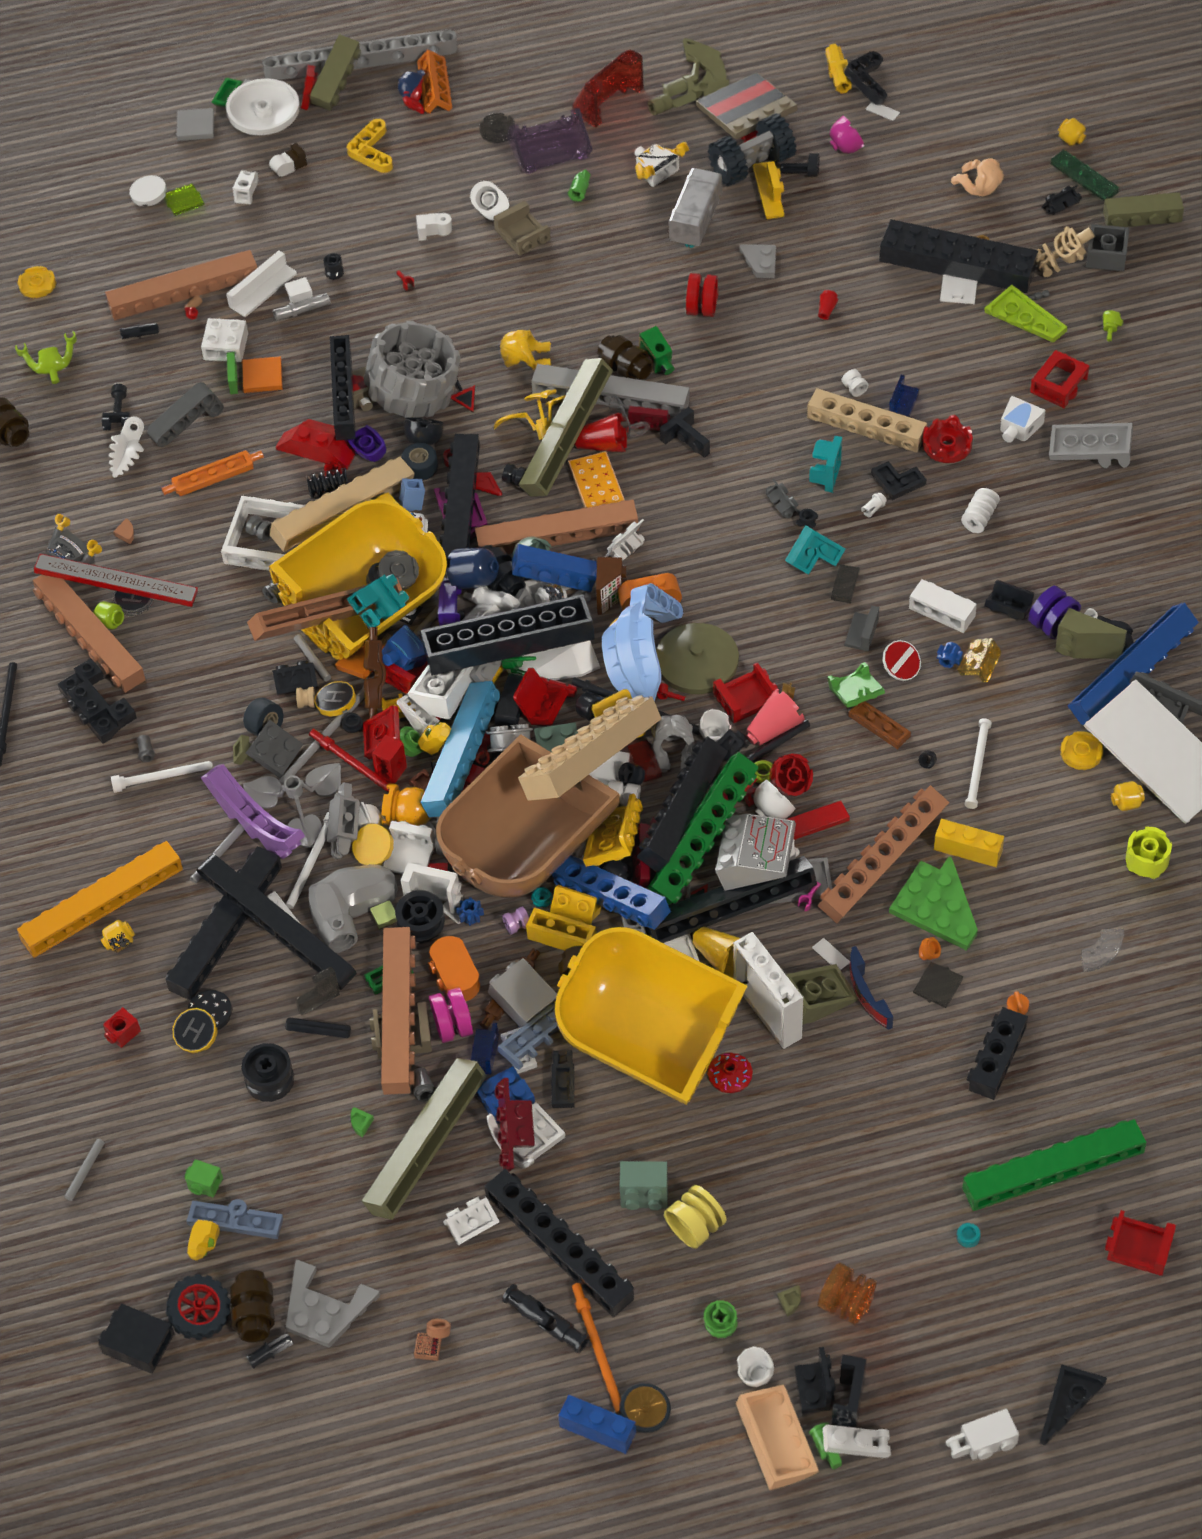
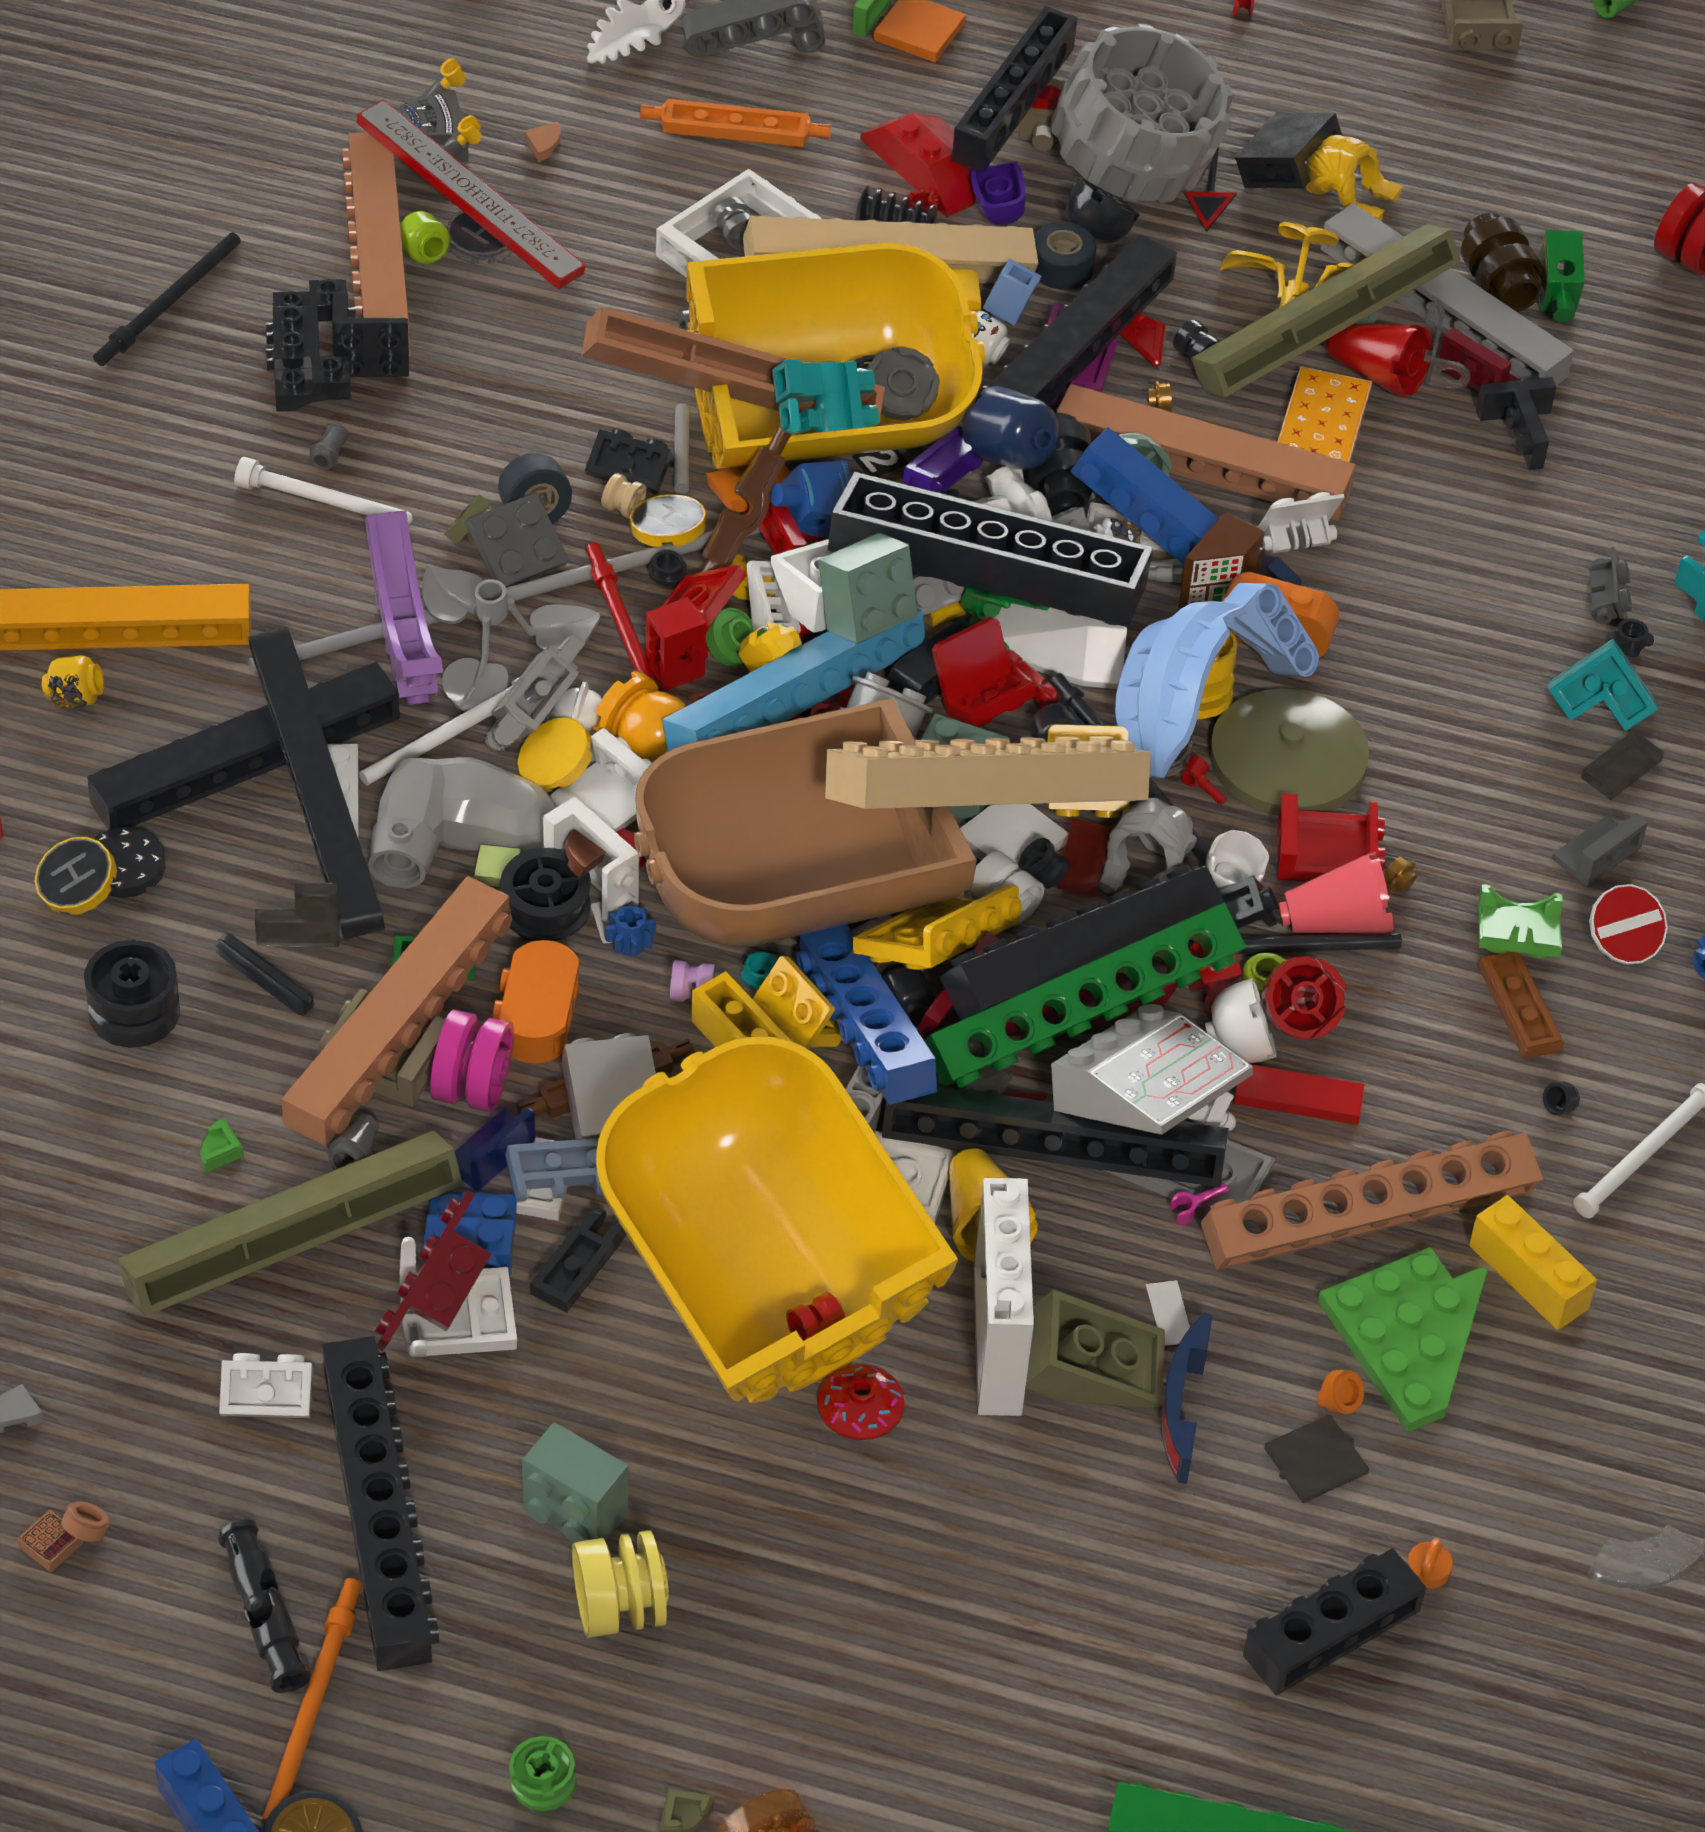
camera: 25 degrees right, 5 degrees down
(129, 686) = (373, 344): none -> black bracket
(427, 887) = (582, 853): none -> copper tile
(466, 684) = (867, 587): none -> sand green brick
(485, 351) = (1282, 147): none -> black panel
(516, 511) = (1160, 396): none -> pearl gold plate
(635, 572) = (1275, 568): none -> dark blue tile
(692, 1046) = (815, 1317): none -> red wheel

